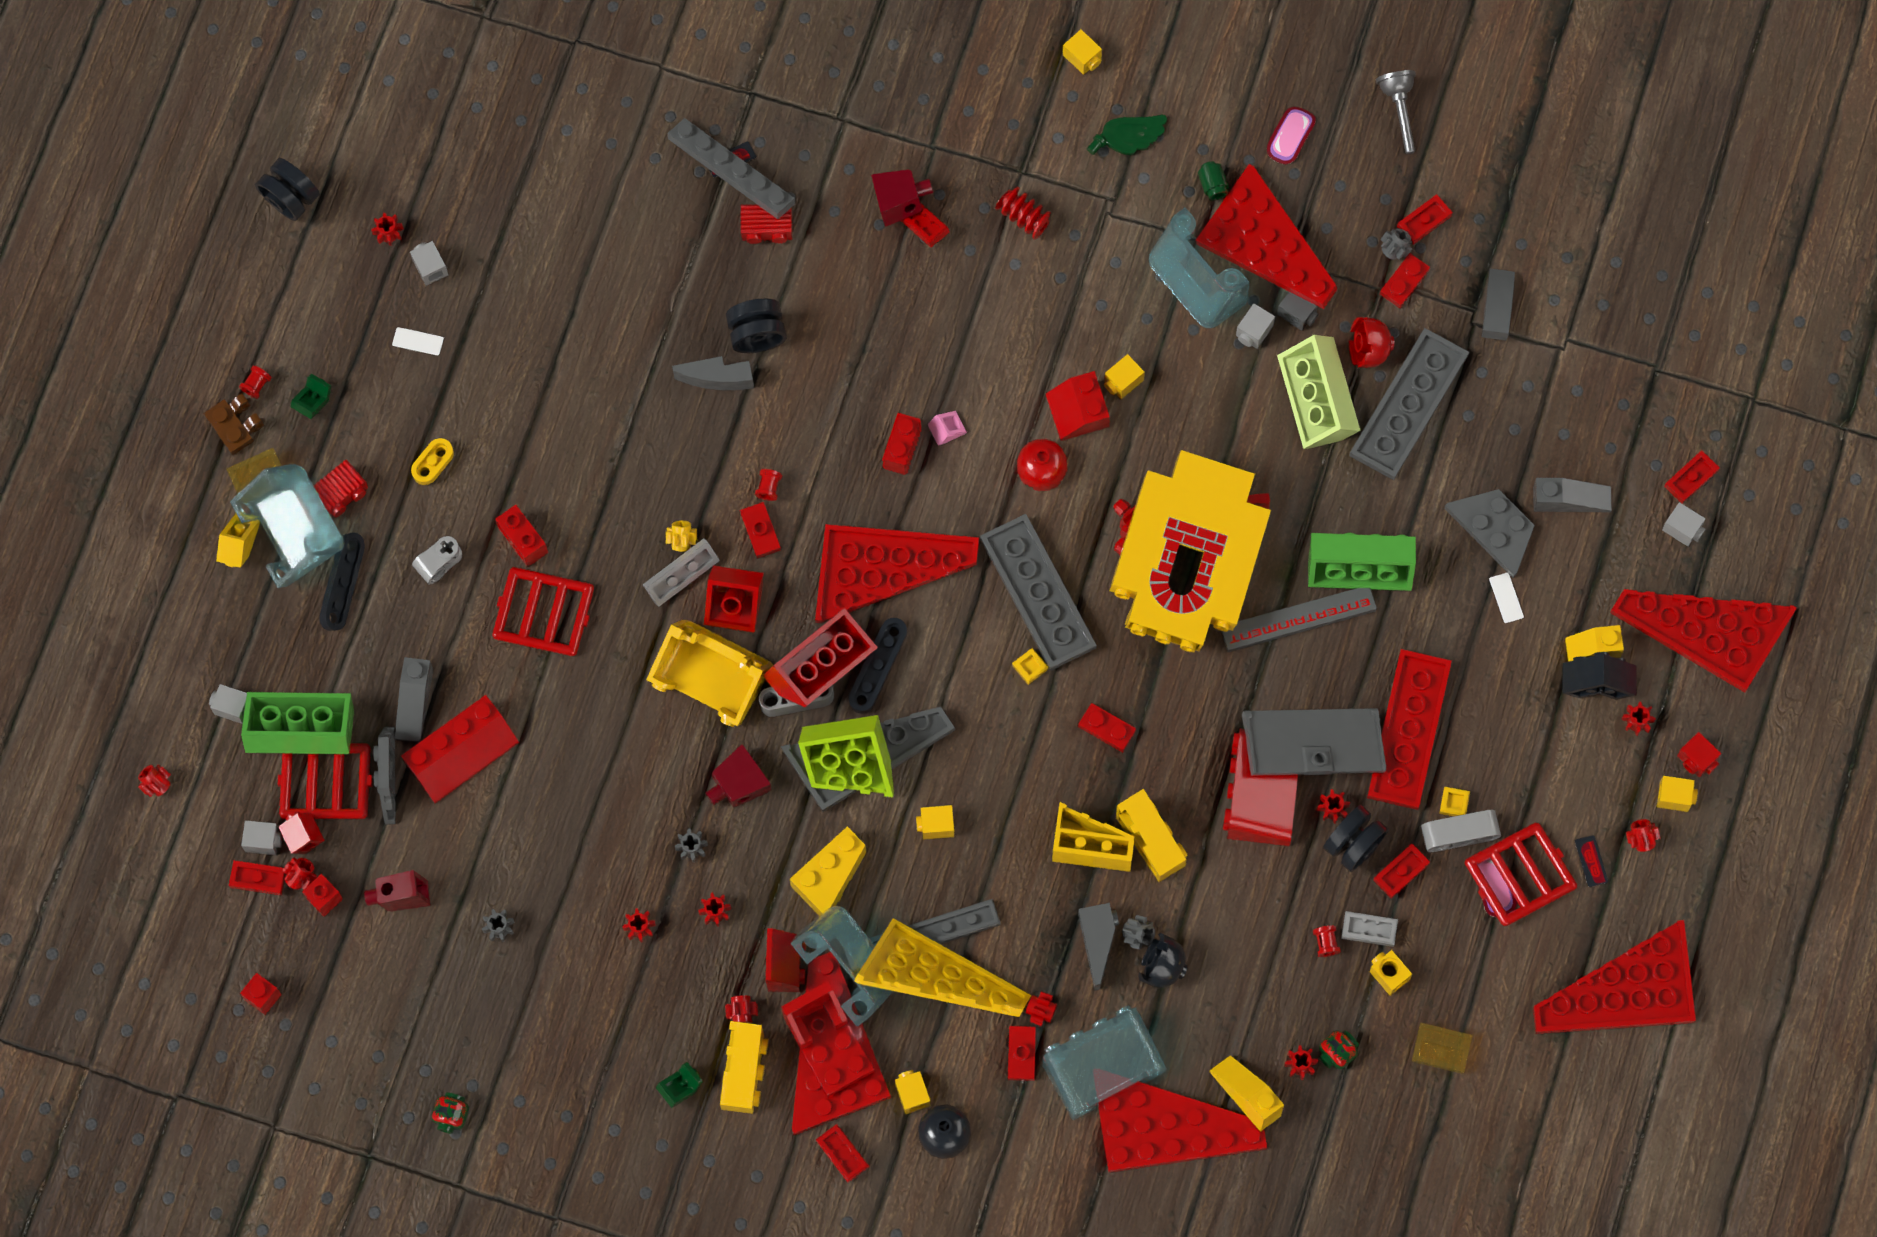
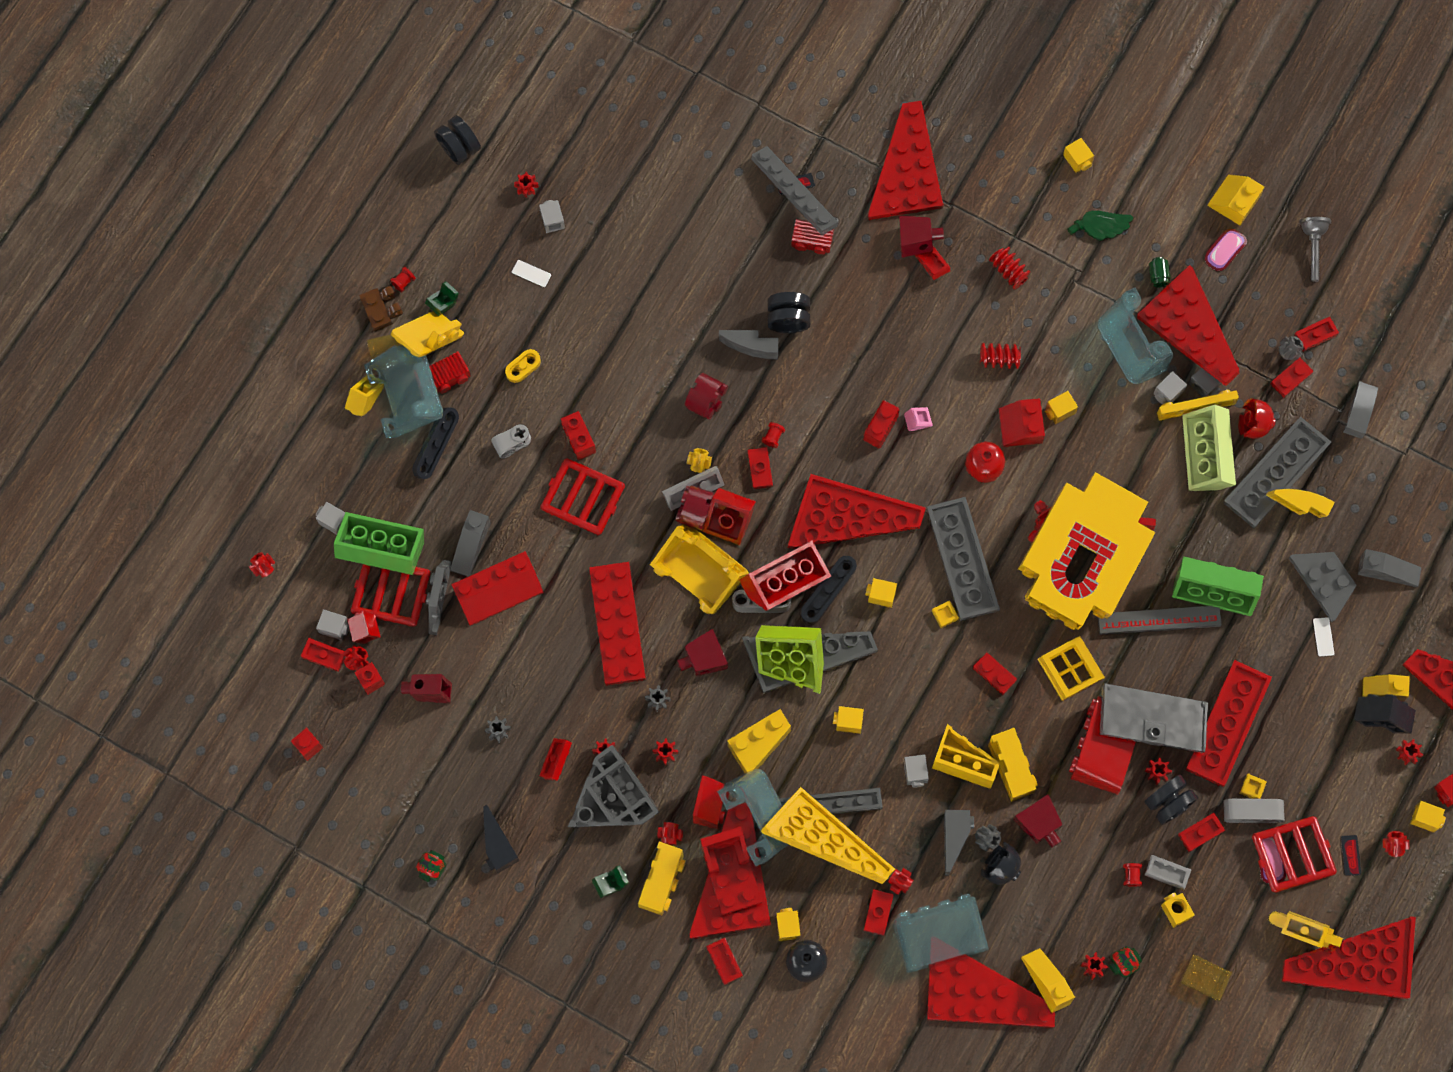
camera: 10 degrees right, 0 degrees up
(303, 445) = (427, 333): none -> yellow bracket
(529, 1071) = (498, 848): none -> black slope
(578, 947) = (555, 759): none -> red plate
(620, 762) = (617, 623): none -> red plate
(659, 977) = (612, 795): none -> dark grey wedge
(673, 453) = (705, 396): none -> dark red brick
(689, 596) = (695, 507): none -> dark red brick
(871, 115) = (909, 171): none -> red wing
(944, 655) = (881, 592): none -> yellow brick
(1032, 868) = (916, 770): none -> light grey brick
(1034, 326) = (1000, 355): none -> red piece
(1183, 716) = (1086, 659): none -> yellow piece
(1200, 899) = (1040, 822): none -> dark red torso
(1291, 66) = (1236, 197): none -> yellow slope
(1323, 326) = (1171, 410): none -> yellow plate
(1447, 434) = (1302, 501): none -> yellow slope
(1551, 963) = (1305, 929): none -> yellow hinge

